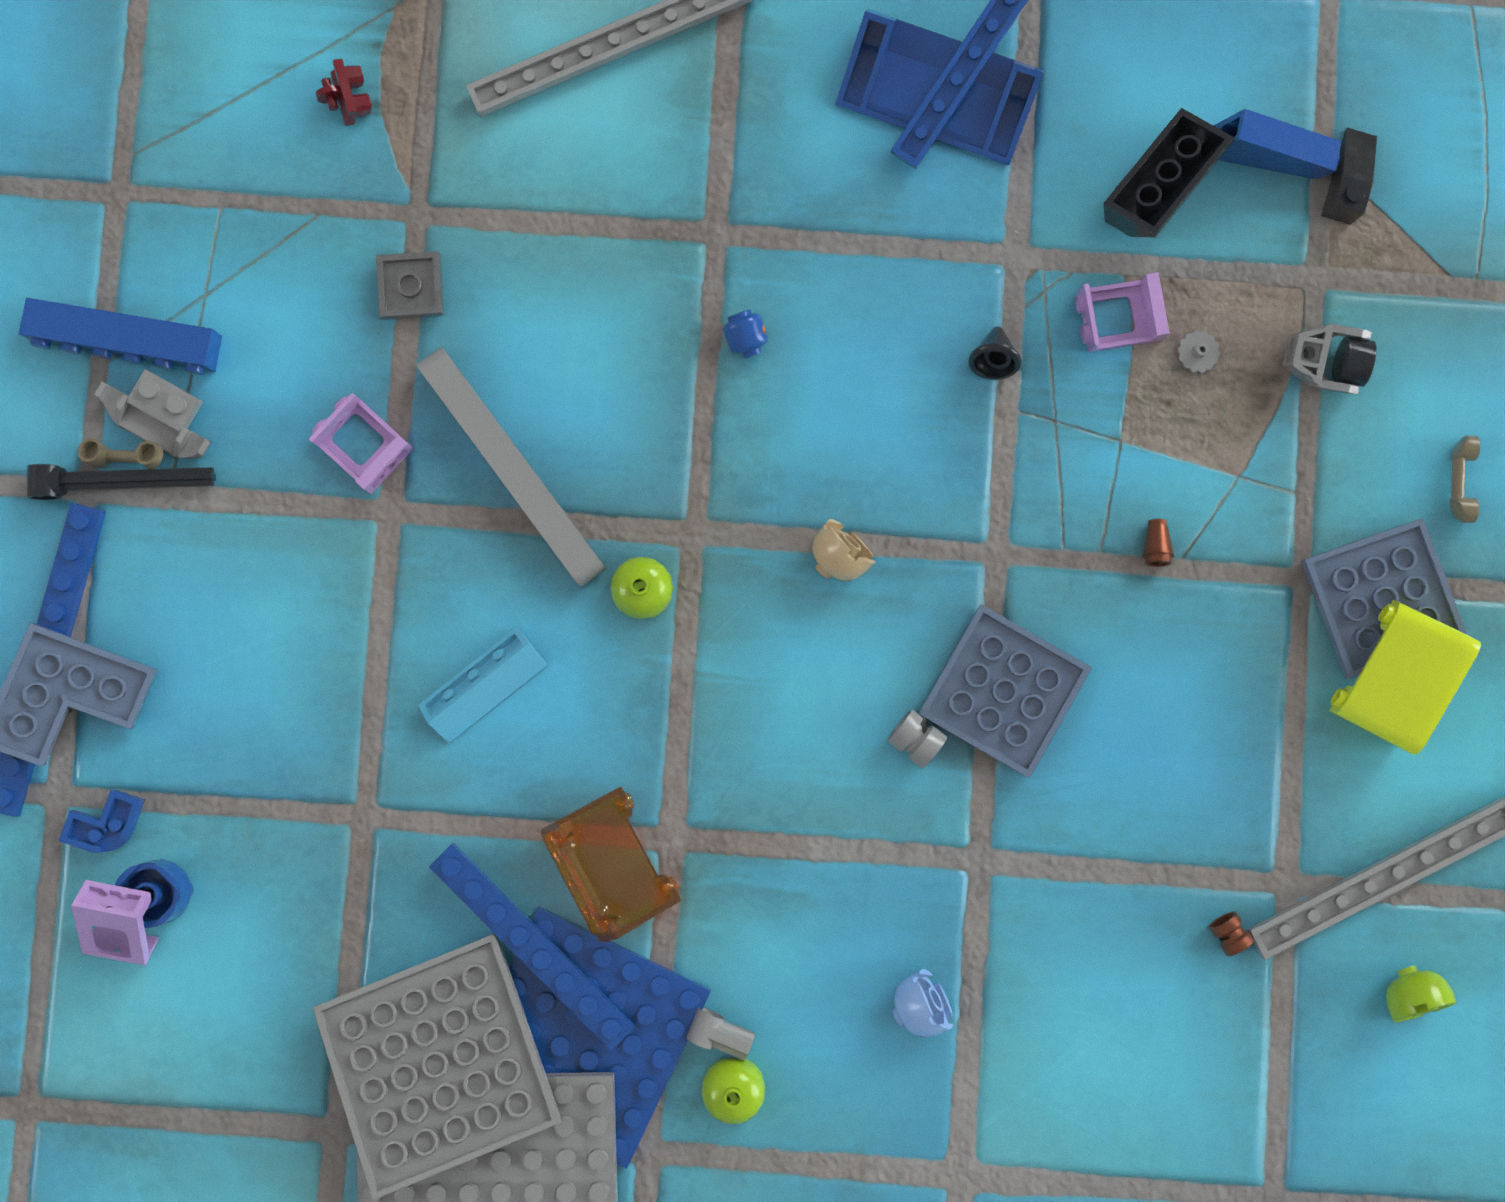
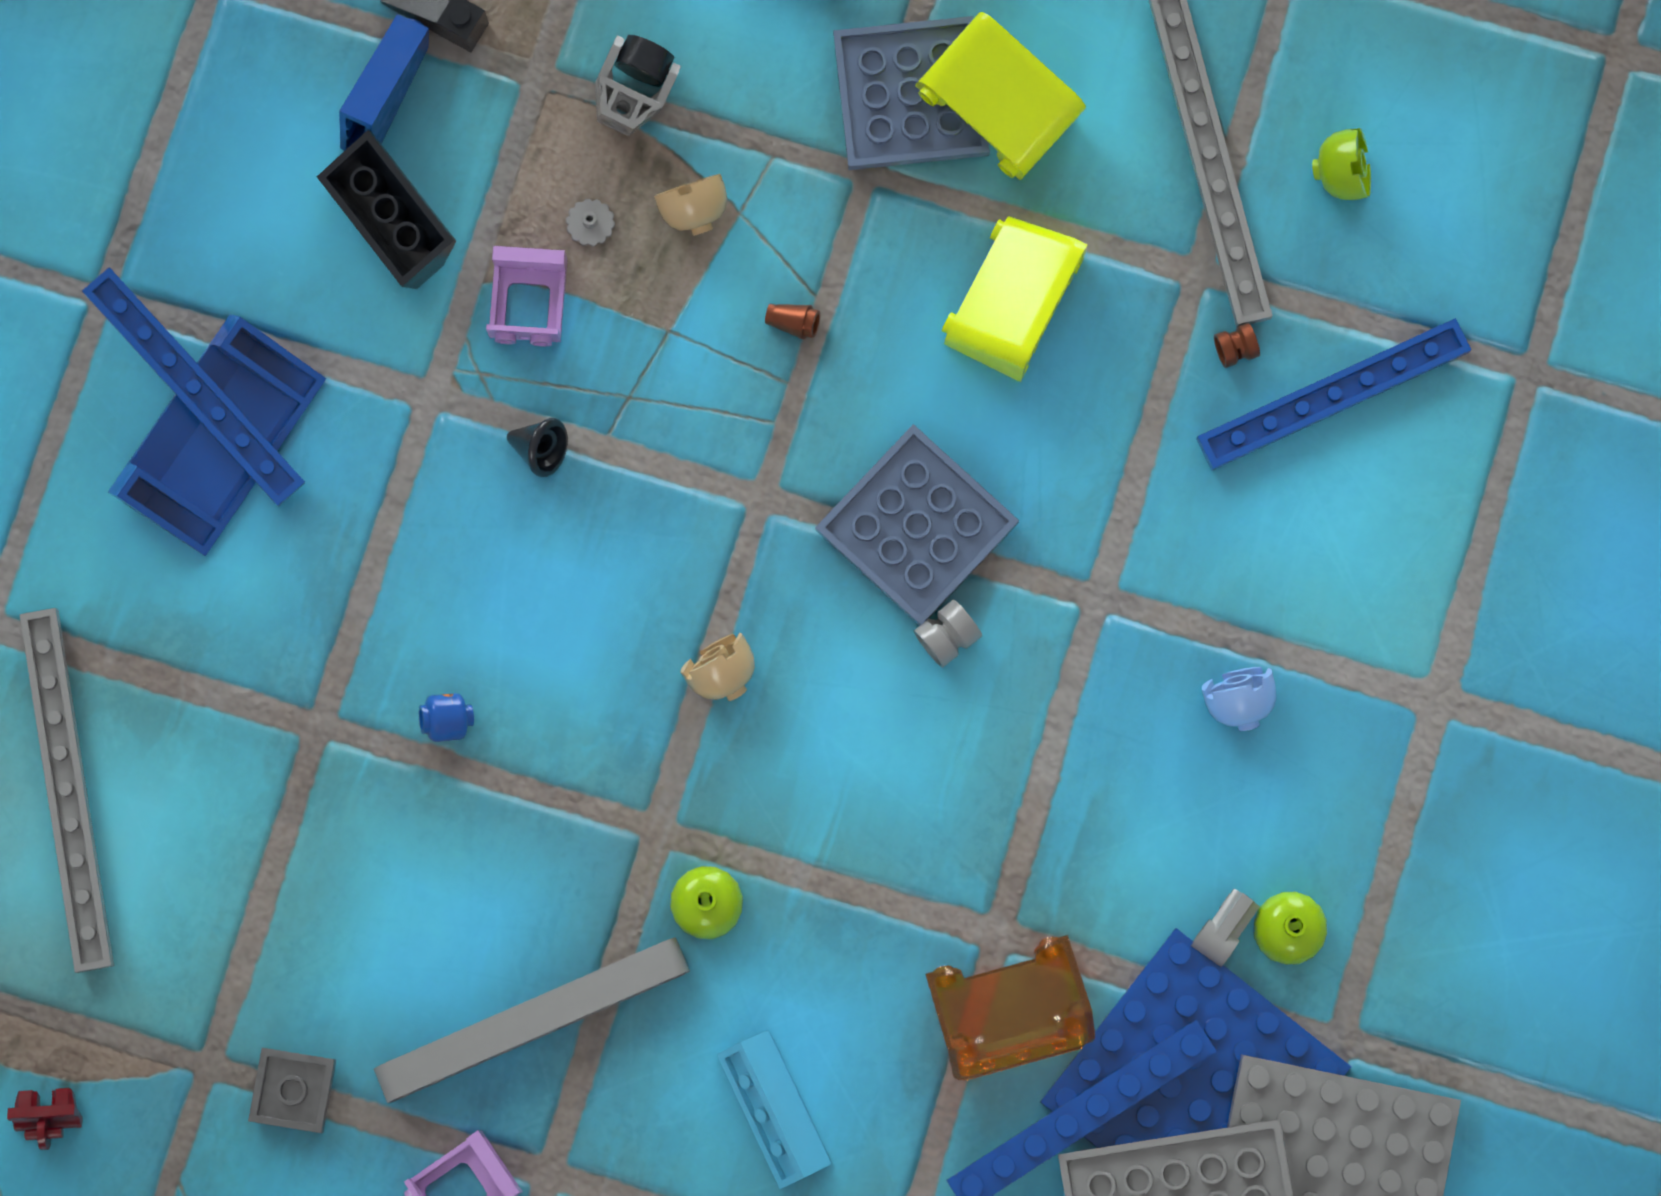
camera: 75 degrees left, 5 degrees down
(1209, 1029) = (1333, 394): none -> blue plate
(1227, 729) = (1014, 296): none -> neon yellow windscreen
(1237, 434) = (694, 204): none -> tan cylinder

